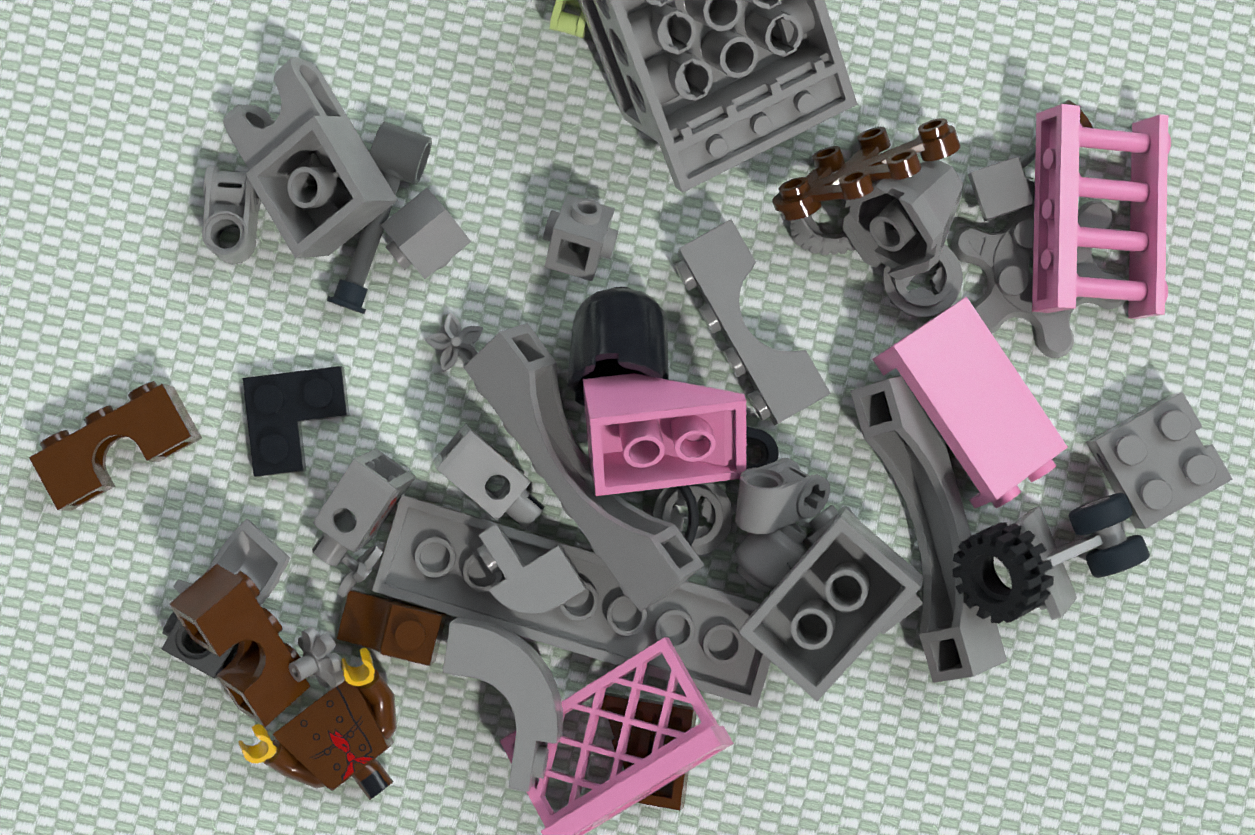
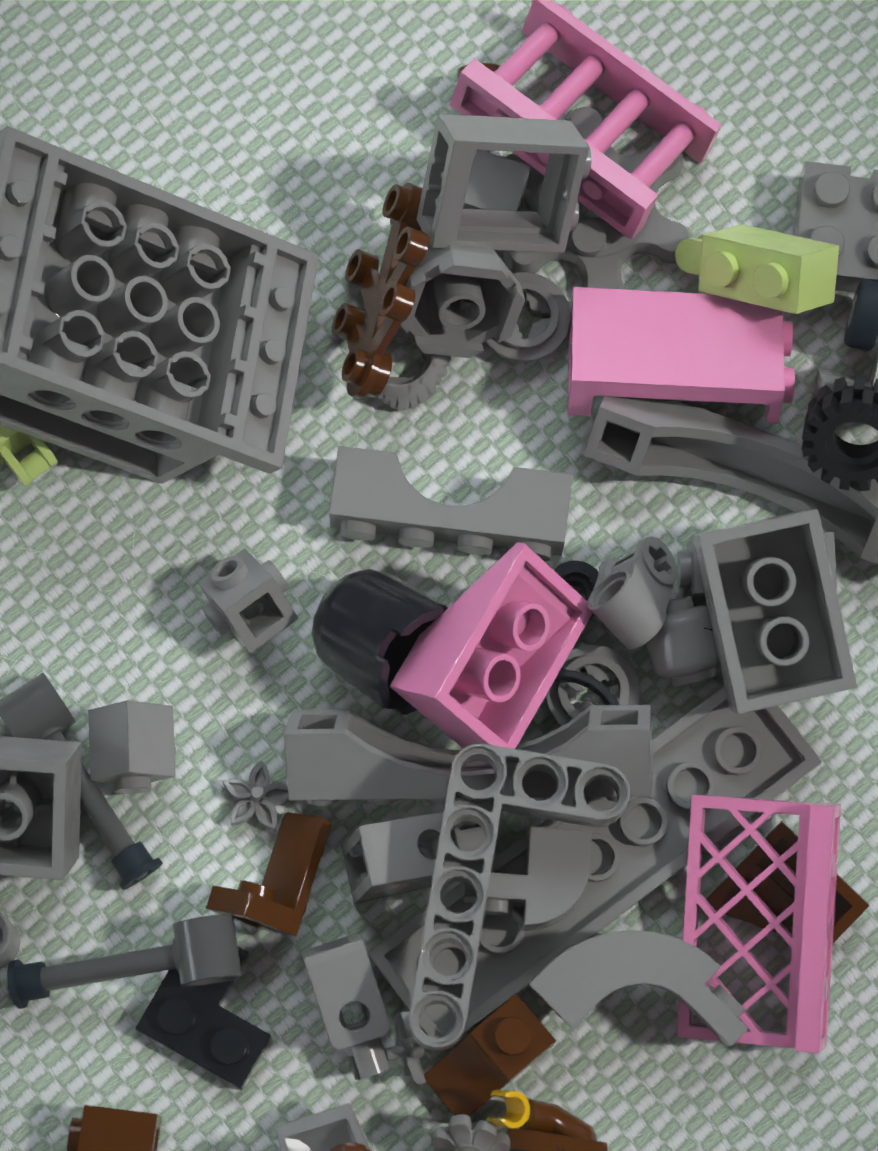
camera: 55 degrees left, 10 degrees down
(316, 383) = (201, 952): none -> dark grey piece
(409, 407) = (287, 882): none -> reddish brown bracket
(496, 530) = (475, 866): none -> light grey beam
(968, 217) = (449, 172): none -> light grey window
(1078, 418) = (762, 267): none -> yellowish green brick

